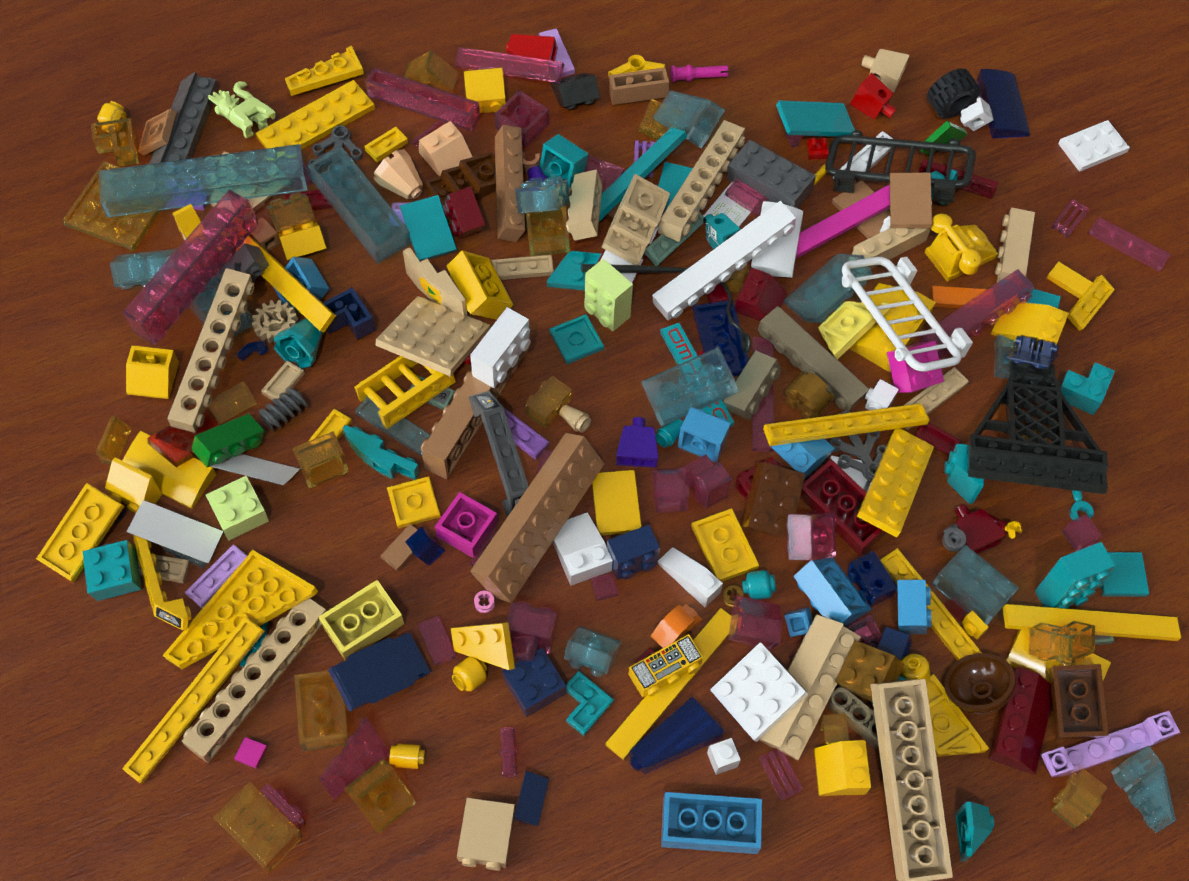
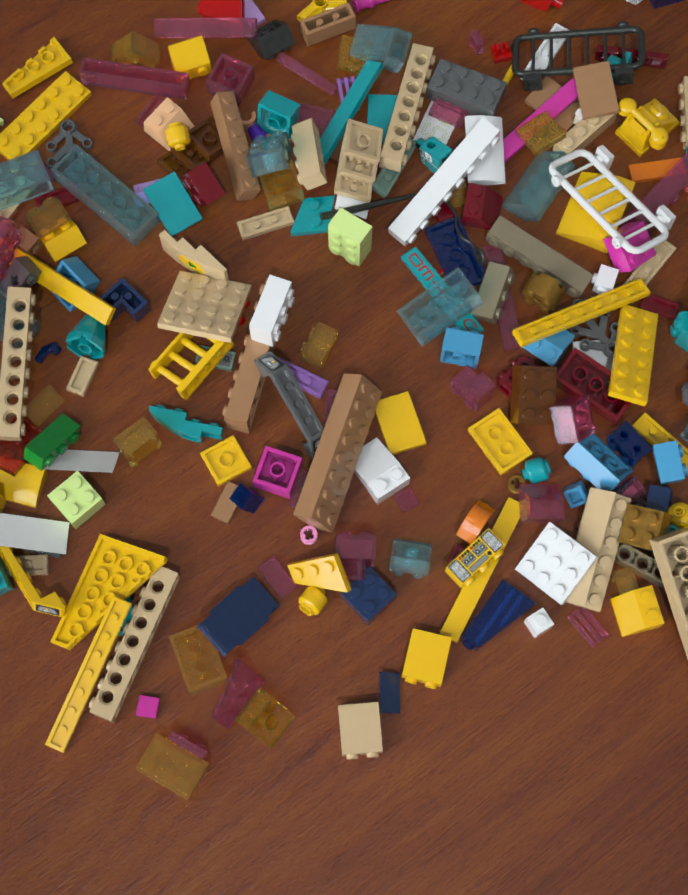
camera: 10 degrees left, 10 degrees up
(215, 576) = (75, 563): lavender tile -> none
(274, 319) = (59, 314): tan gear -> none
(282, 408) = (90, 401): dark grey piece -> none
(334, 422) = (137, 409): yellow tile -> none
(361, 619) = (210, 575): light yellow brick -> none
(386, 144) = (112, 129): yellow plate -> none
(399, 175) = (134, 159): light nougat cone -> none
(402, 431) = (200, 397): clear light blue tile -> none
(407, 756) = (278, 681): yellow brick -> none
(451, 161) = (177, 136): none -> yellow head
(479, 285) = (233, 250): yellow brick -> none
(508, 752) = (361, 658): clear pink pin -> none
(575, 418) = (346, 355): tan cone -> none
(576, 339) = (329, 280): teal tile -> none
(582, 768) = (426, 658): none -> yellow panel
(592, 703) = (419, 600): teal tile -> none
(606, 131) = (306, 73): none -> clear pink axle
(633, 552) = (426, 466): dark blue brick -> none
(637, 445) = (406, 368): dark purple torso -> none
(669, 433) = (430, 351): teal cone -> none
(670, 490) = (444, 404): clear pink brick -> none
(691, 576) = (477, 474): white slope -> none
(711, 823) = (541, 680): dark azure brick -> none
(815, 118) = (494, 24): teal tile -> none
(841, 233) = (540, 133): none -> clear yellow plate
(847, 326) = (562, 220): light yellow wing -> none
(944, 134) = (614, 16): green tile -> none

